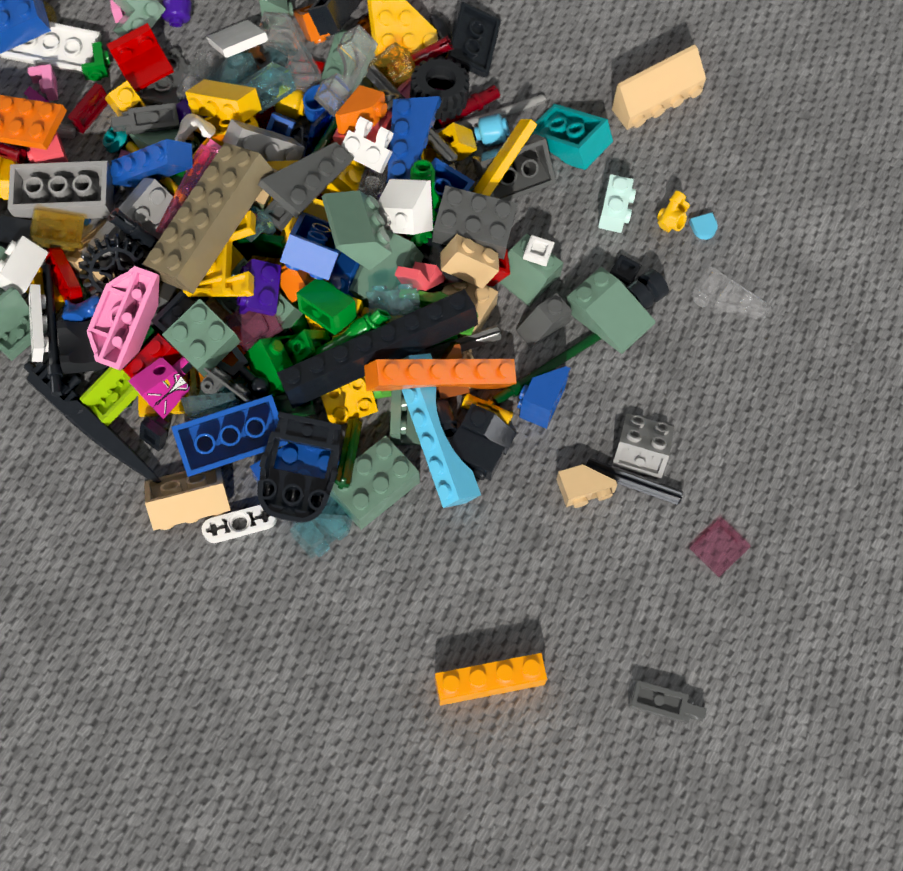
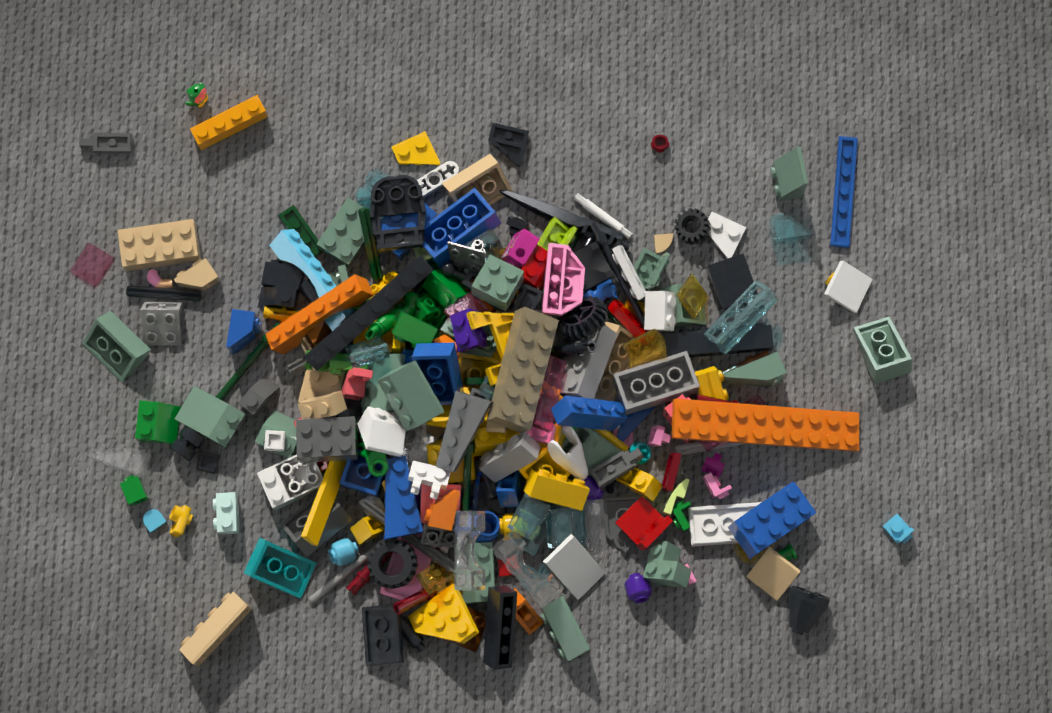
camera: 170 degrees right, 10 degrees up
(43, 415) = (603, 216): none -> white piece
(88, 147) = (658, 436): none -> bright pink tile
(105, 76) = (678, 493): none -> yellowish green slope
(122, 543) = (509, 141): none -> black wing
(250, 569) = (416, 151): none -> yellow wing
(436, 517) = (293, 220): none -> dark green tile
(525, 738) = (197, 95): none -> green animal
(538, 213) = (289, 481): none -> white slope
(626, 539) = (159, 245): none -> tan brick
(638, 496) = (156, 281): none -> arm
(677, 326) = (157, 422): none -> green slope
(708, 430) = (115, 345): none -> sand green slope
(722, 257) = (134, 490): none -> green brick

